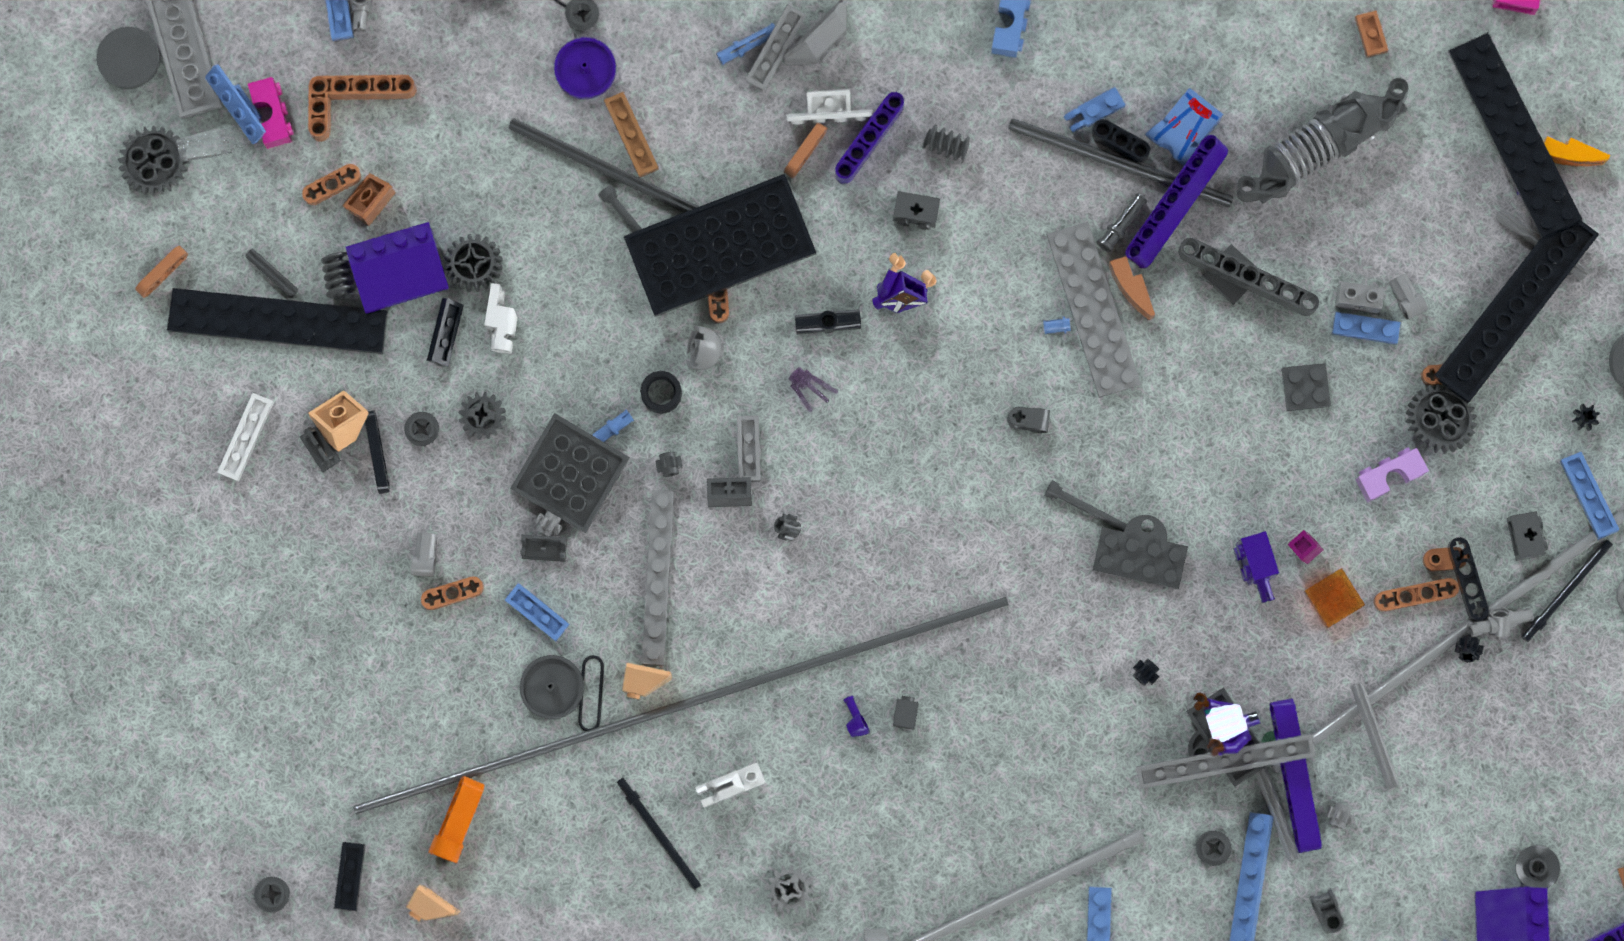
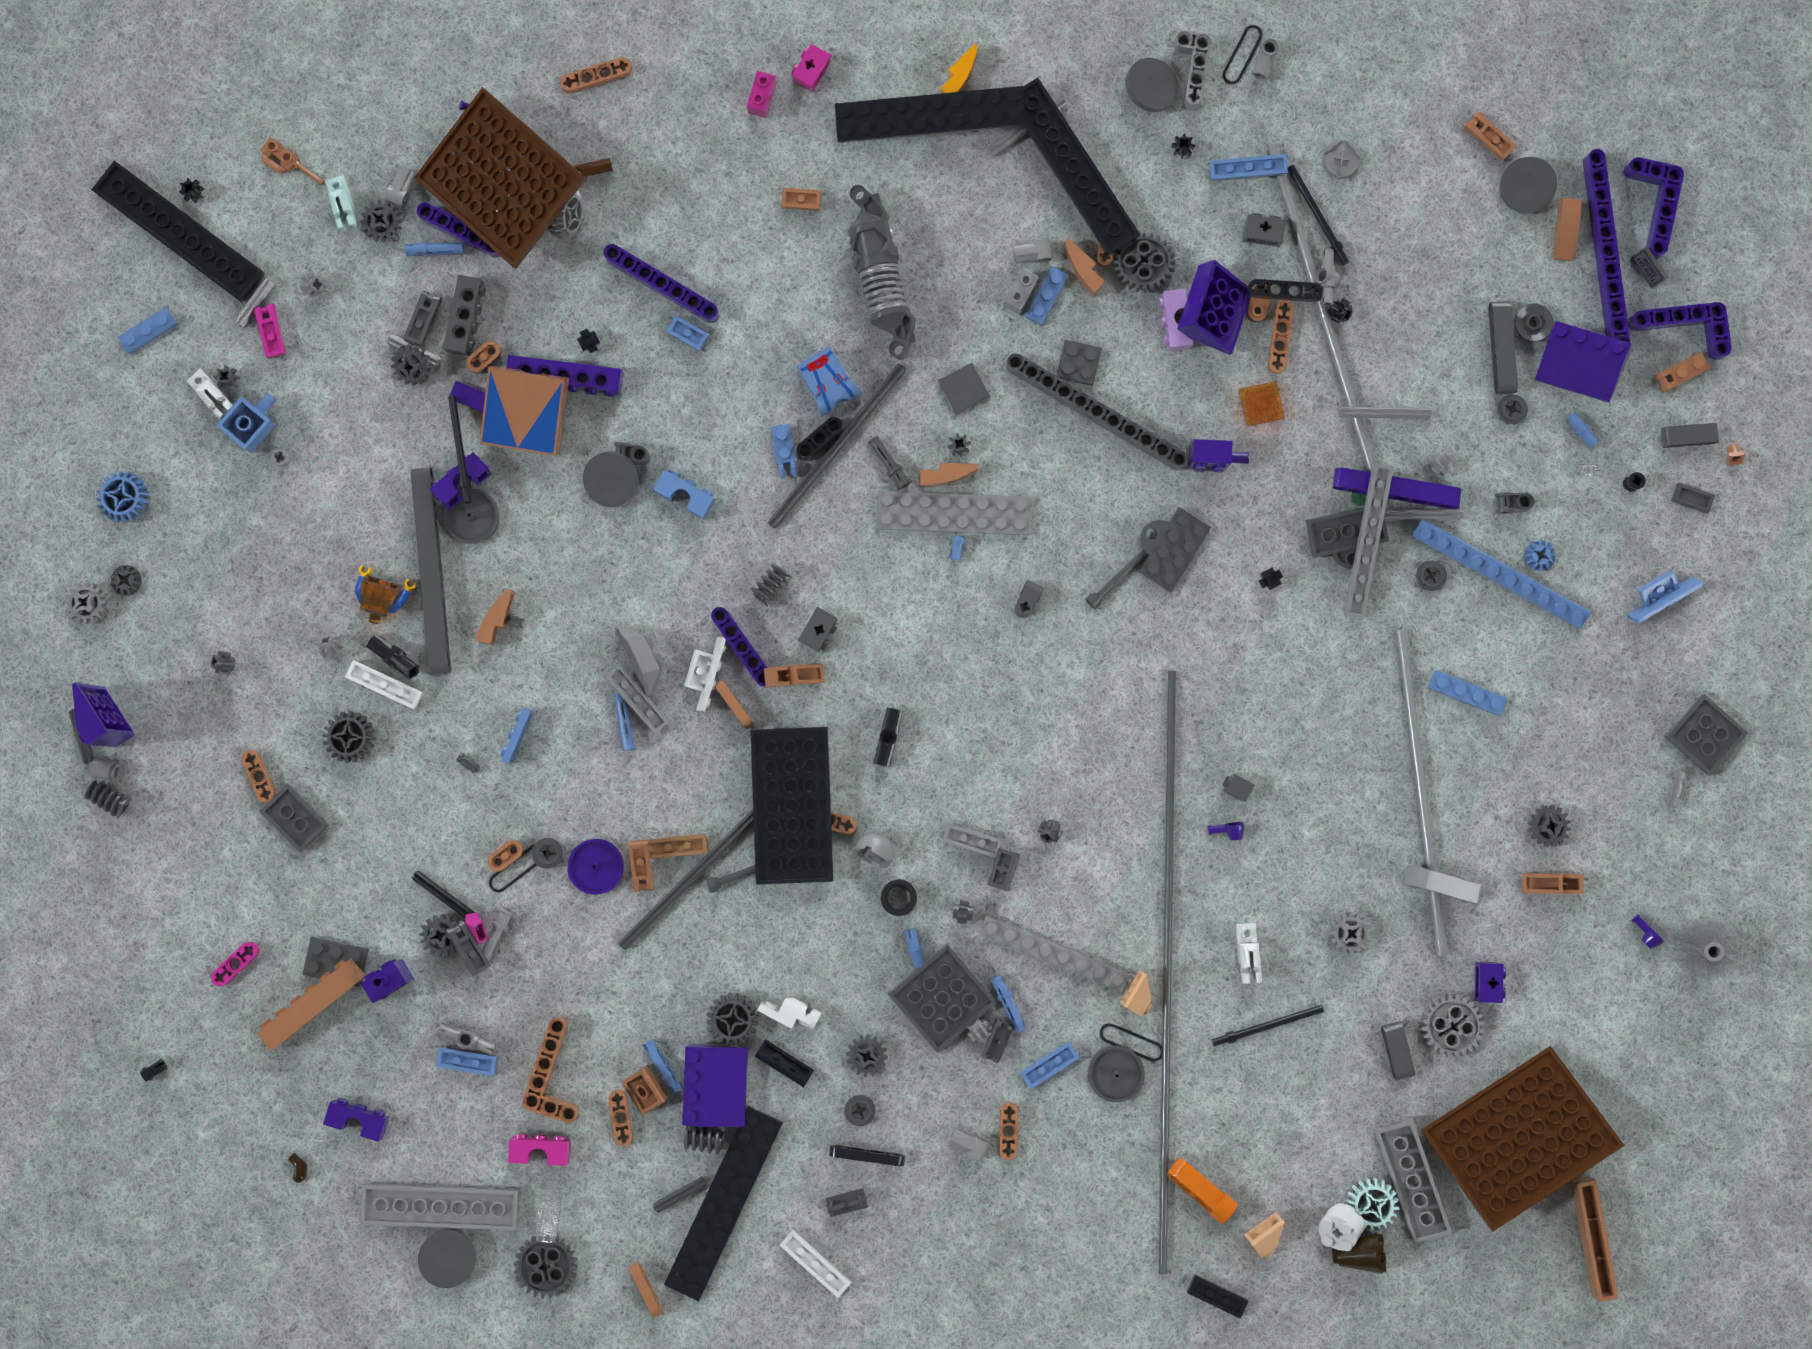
camera: 70 degrees left, 5 degrees up
(237, 104) = (523, 1176): medium blue bracket -> none
(339, 420) = (828, 1178): light nougat slope -> none
(402, 204) = (667, 1075): none -> medium blue pin
(583, 550) = (1004, 996): none -> medium blue pin
(601, 112) = (640, 865): none -> nougat plate
(801, 380) = (929, 776): clear purple plant -> none
(858, 200) = (794, 675): none -> nougat slope
(901, 291) = (885, 666): dark purple torso -> none
(1174, 287) = (960, 450): none -> dark grey gear
(1176, 201) = (889, 411): dark purple beam -> none
(1226, 724) = (1342, 529): torso -> none
(1255, 286) = (977, 367): dark grey beam -> none
(1263, 413) = (1091, 403): none -> dark grey beam
(1305, 547) = (1213, 411): magenta brick -> none
(1410, 356) = (1083, 268): none -> nougat slope
(1419, 509) = (1215, 307): none -> dark purple slope
(1438, 869) = (1519, 405): none -> dark grey gear
(1496, 842) = (1503, 347): none -> dark grey beam

